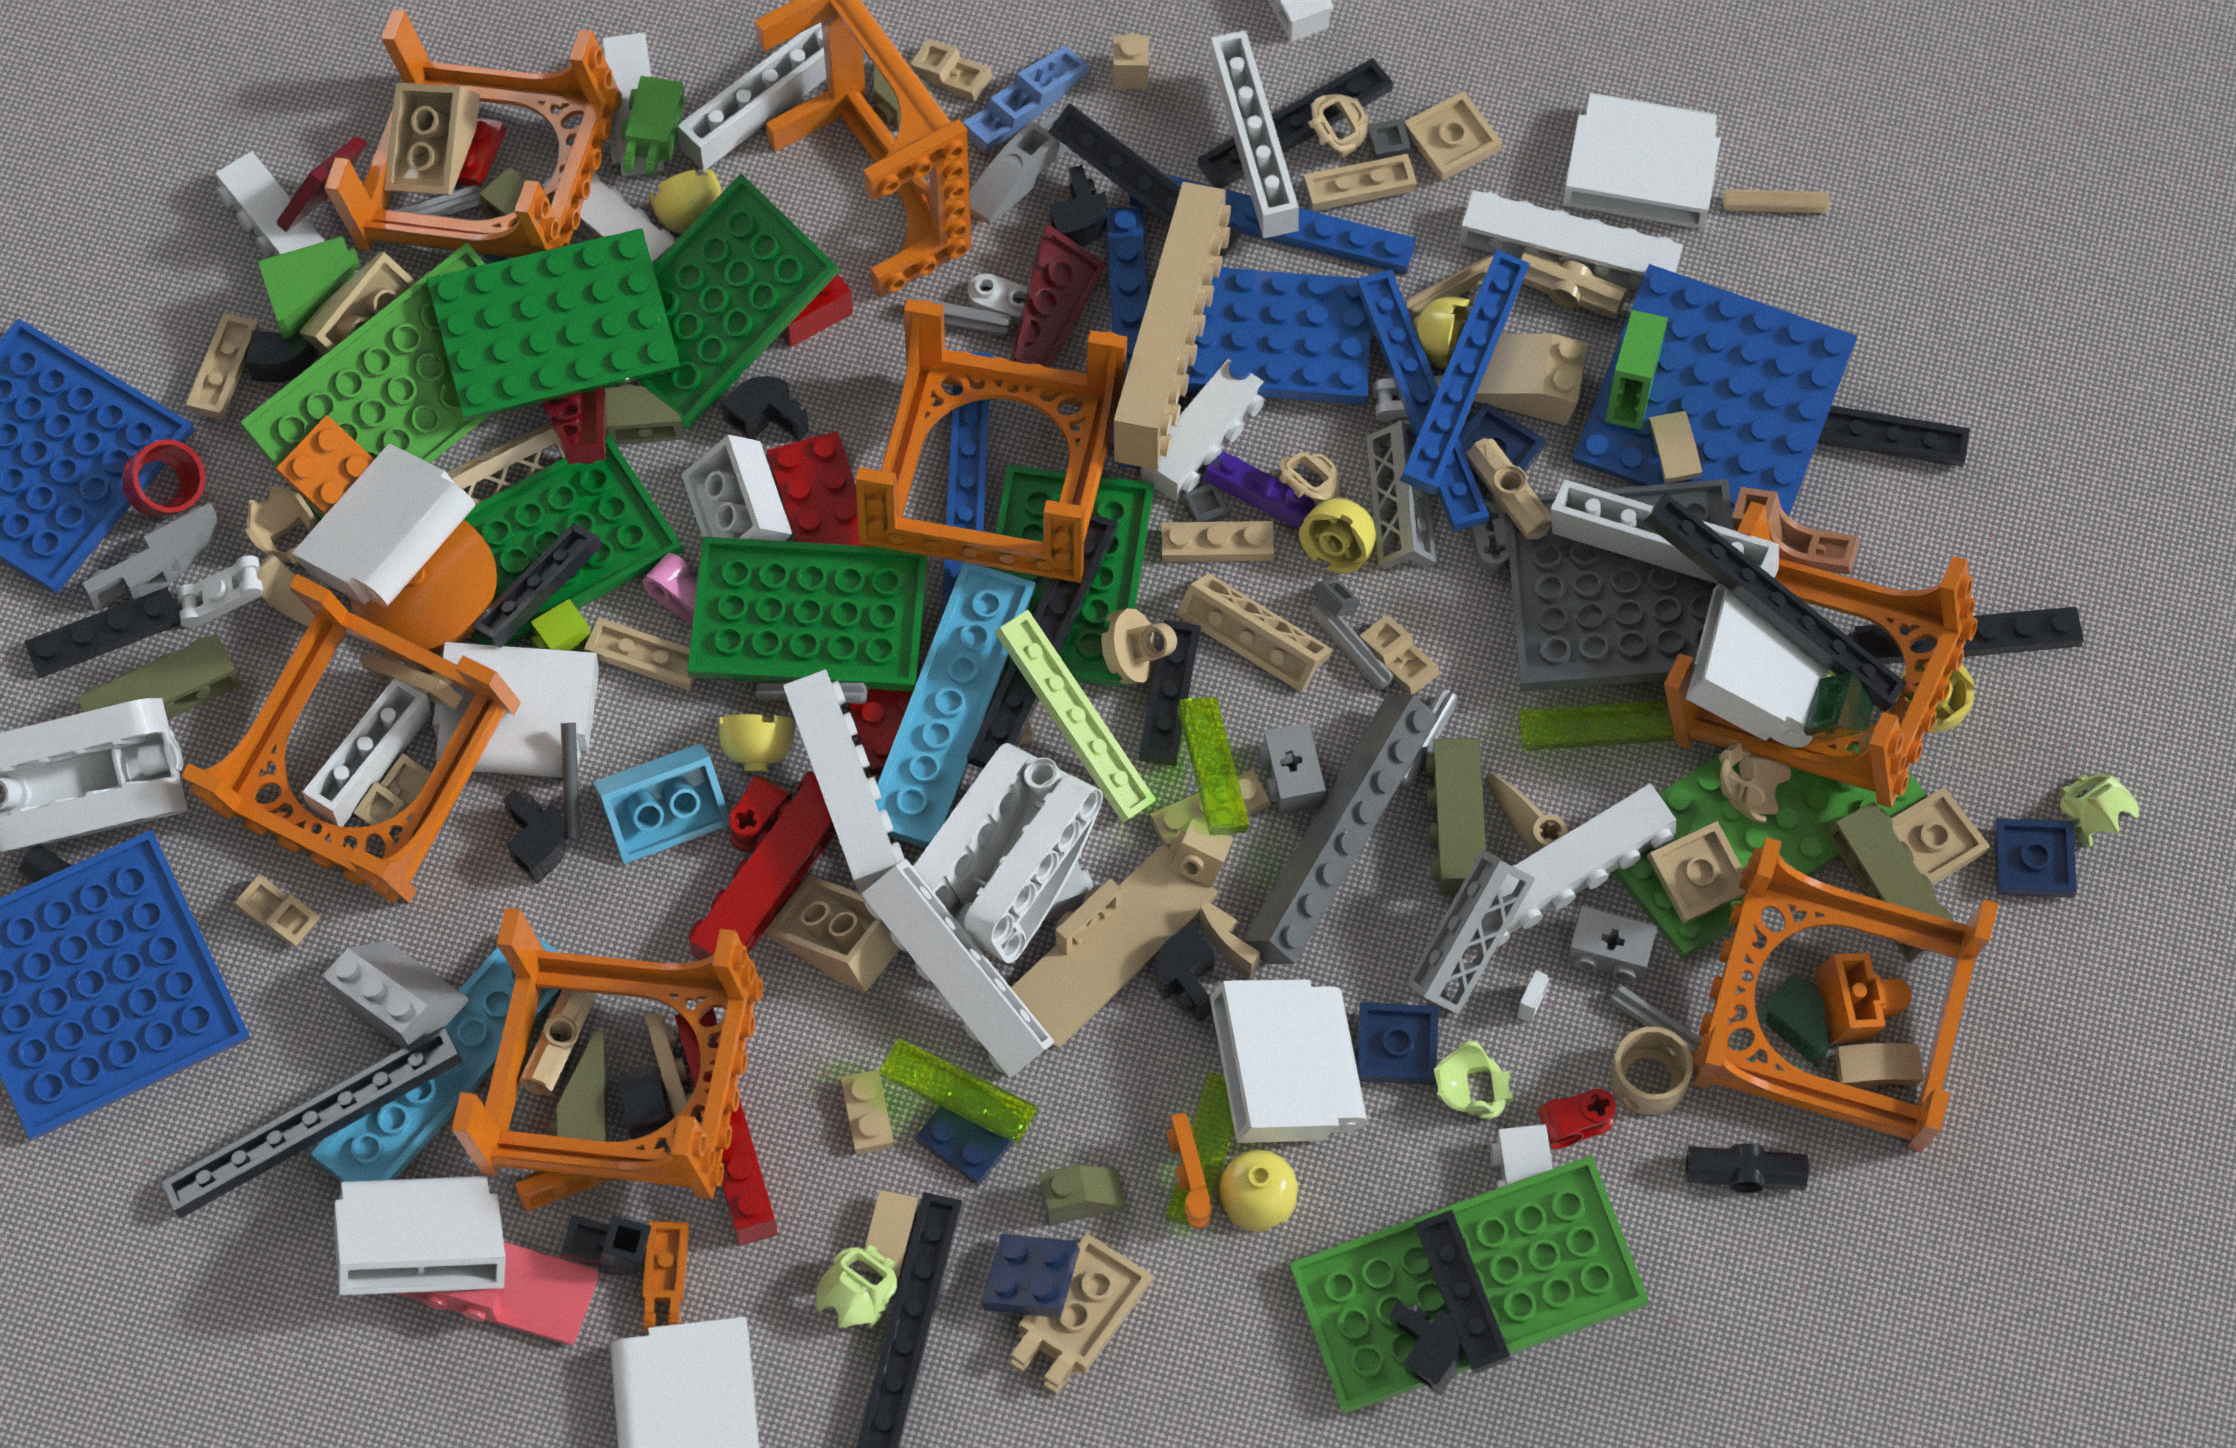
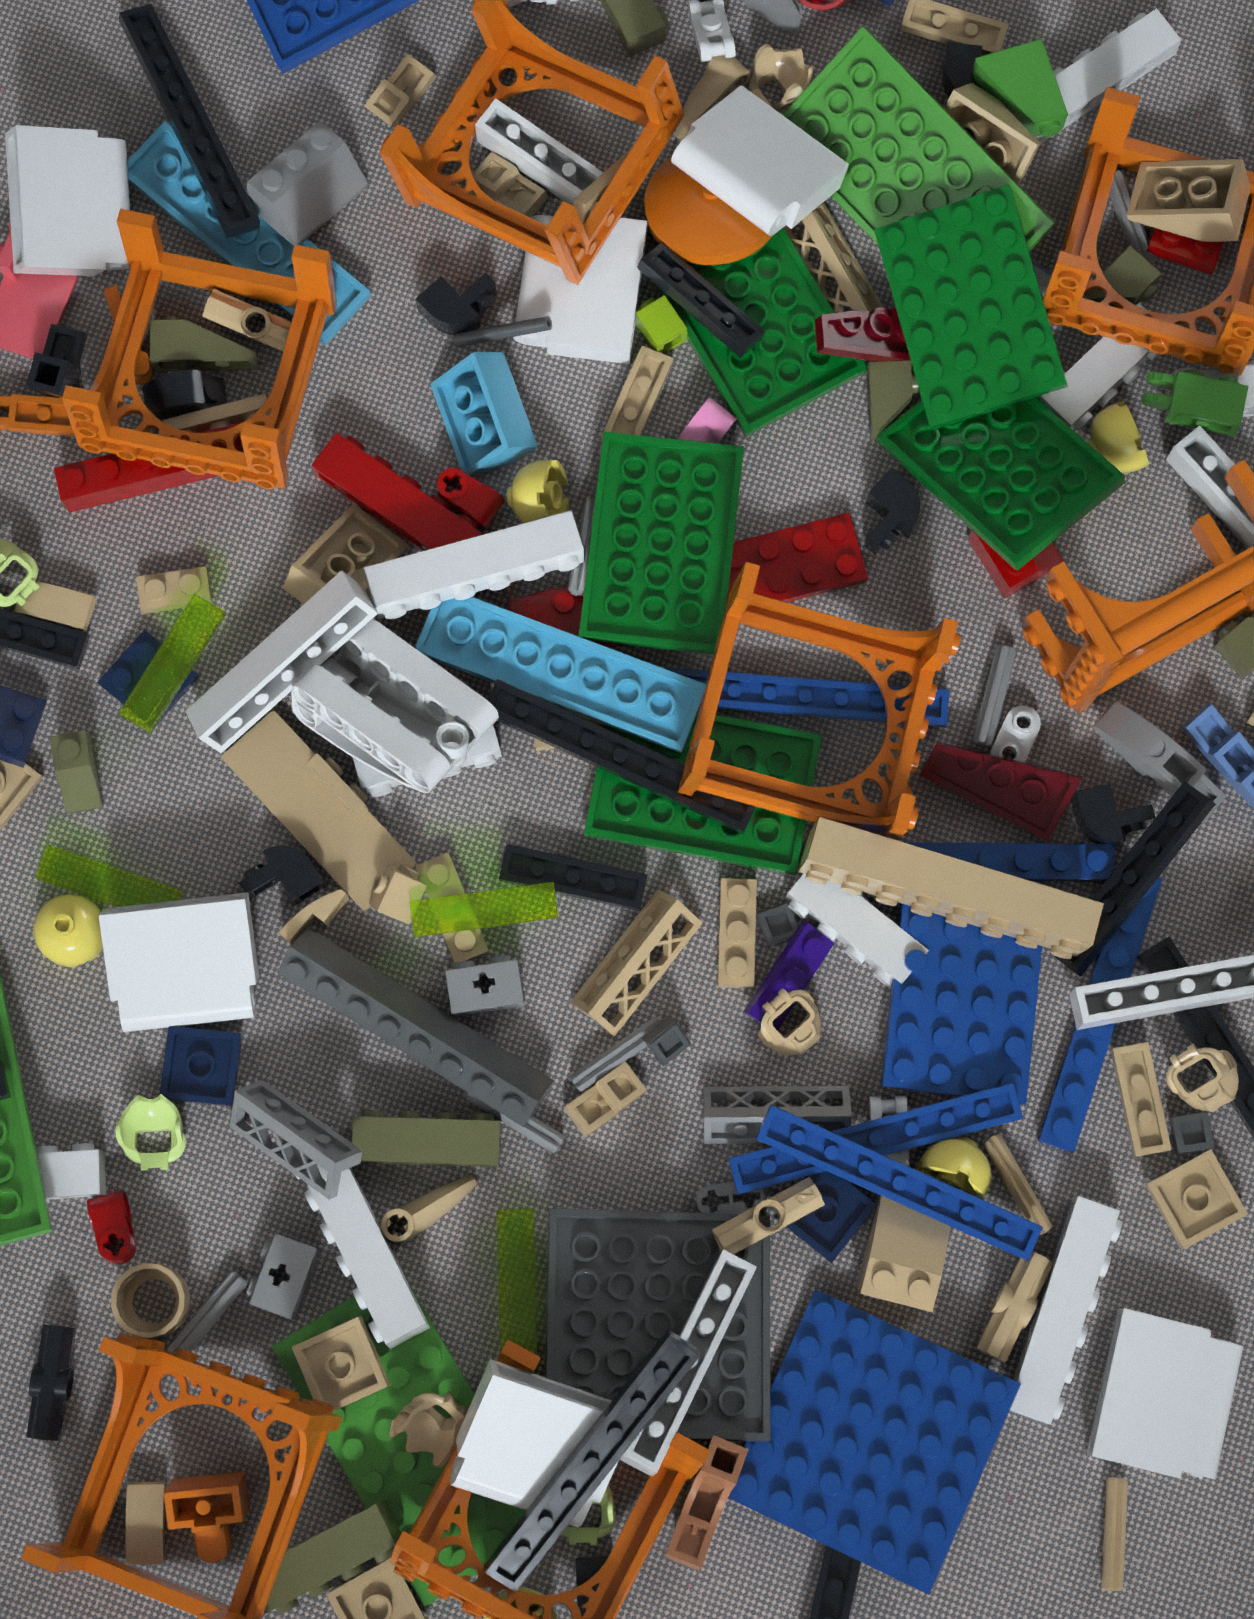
camera: 95 degrees right, 15 degrees up
(312, 190) = (1147, 108): dark red tile -> none
(324, 465) = (829, 109): orange plate -> none
(736, 493) = (793, 484): white slope -> none
(1075, 716) = (536, 780): yellowish green plate -> none
(1132, 645) = (614, 841): tan tile -> none
(1189, 1173) = (76, 864): orange hinge -> none
(1338, 534) = (733, 1050): light yellow cylinder -> none
(1533, 996) = (236, 1196): white tile -> none
(1636, 369) = (894, 1356): bright green slope -> none
(1675, 447) = (810, 1390): tan slope -> none
(1798, 1017) = (198, 1449): clear green slope -> none
(1838, 707) = (476, 1514): clear green slope -> none

